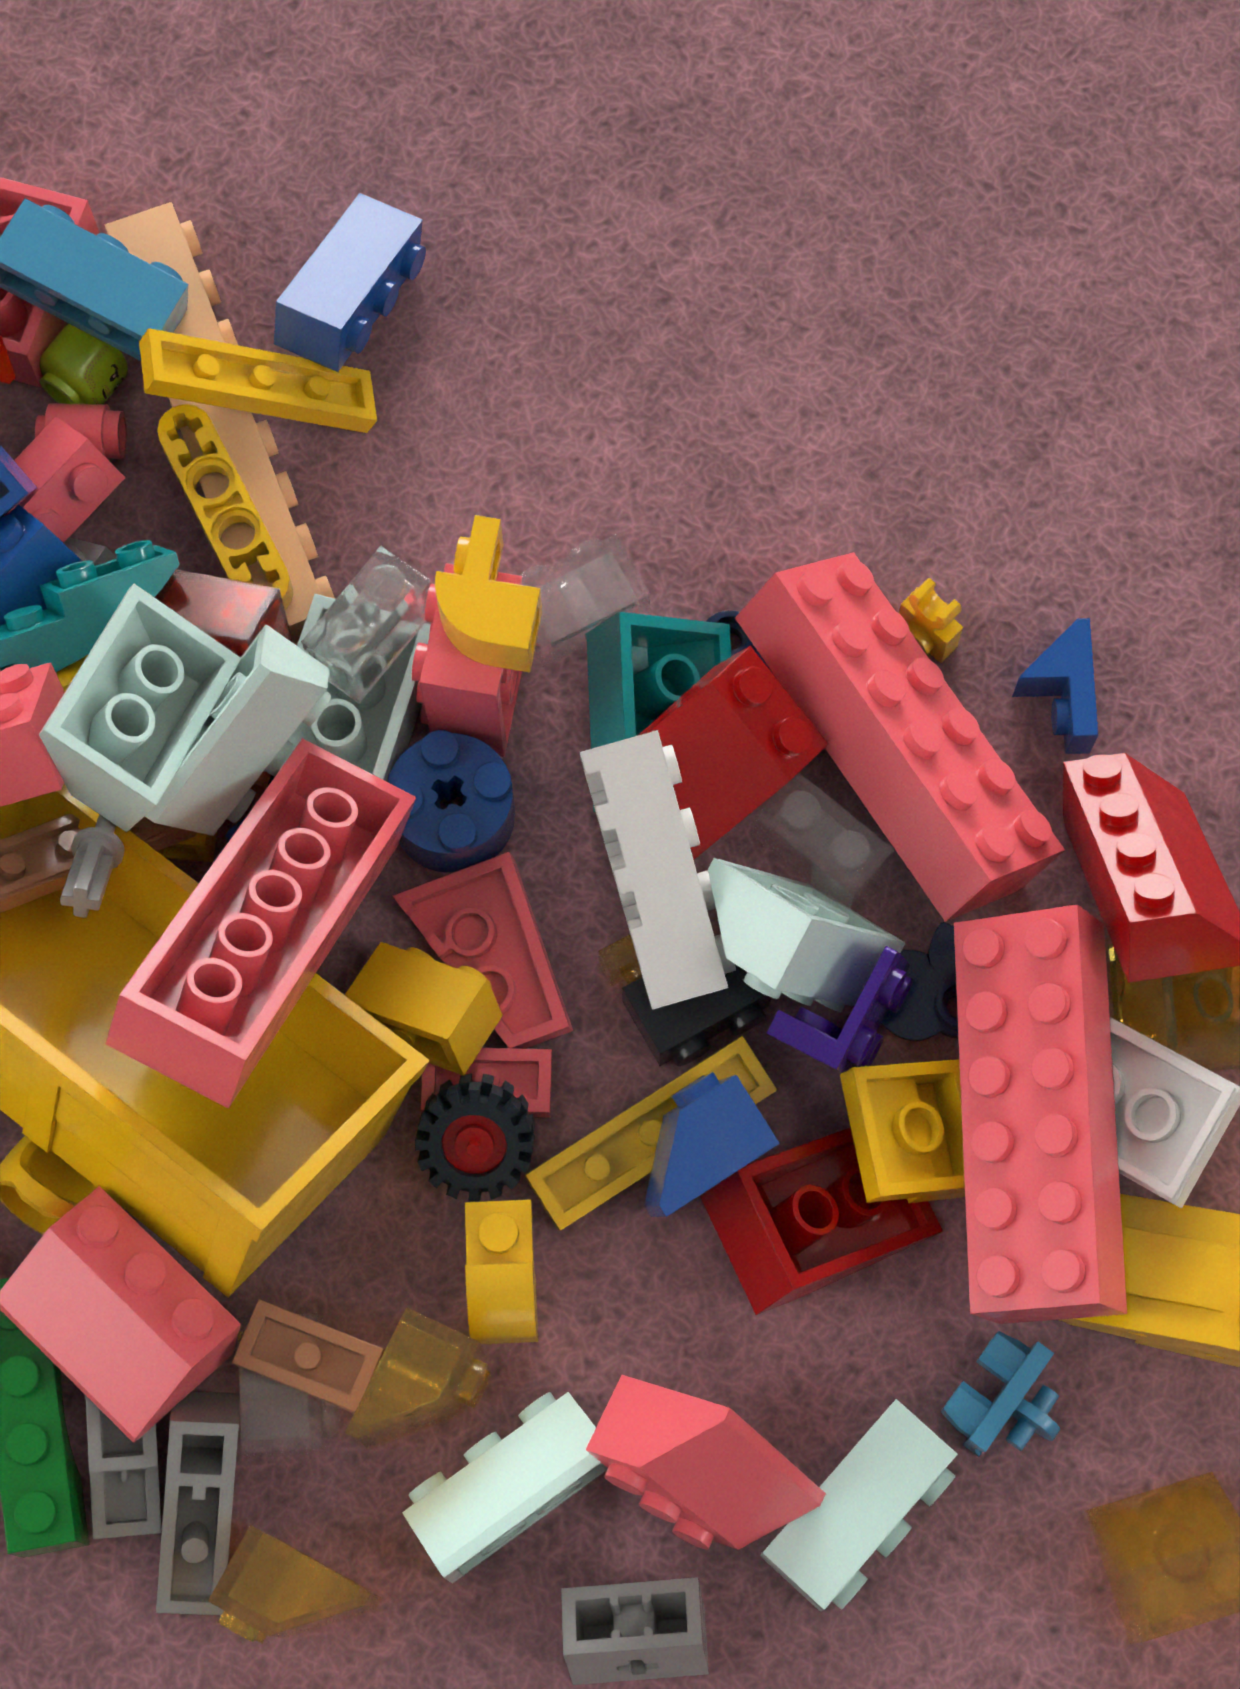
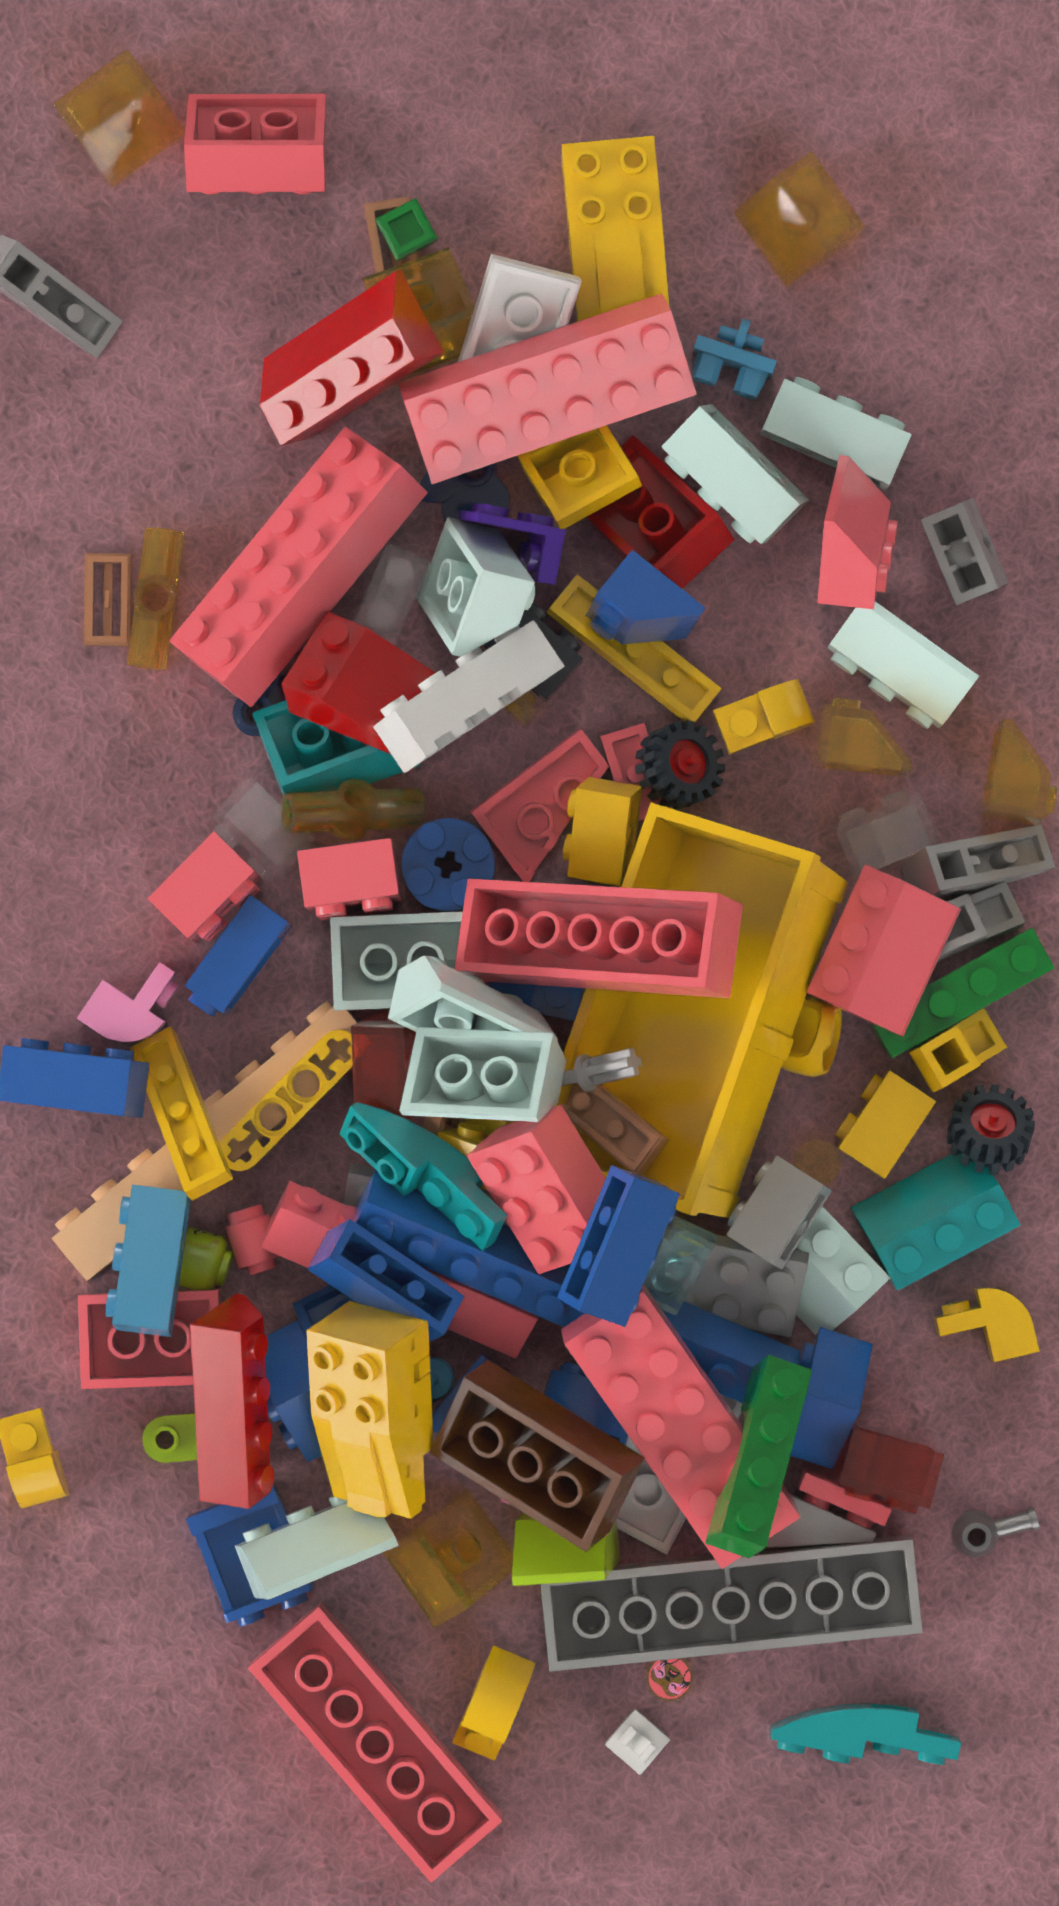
camera: 110 degrees left, 15 degrees up
(307, 1356) = (867, 817): nougat plate -> none
(369, 623) = (353, 955): clear brick -> none
(407, 372) = (129, 1019): none -> bright pink brick
(416, 494) = (236, 957): none -> blue window
(483, 616) = (344, 864): yellow brick -> none
(523, 477) = (206, 889): none -> coral brick
(567, 667) = (352, 810): none -> clear yellow piece
(845, 1339) = (733, 474): none -> light aqua slope
(883, 544) = (158, 569): none -> clear yellow piece
(923, 533) = (89, 595): none -> nougat tile
(932, 620) = (202, 572): yellow plate -> none
(1067, 672) = (201, 463): blue slope -> none

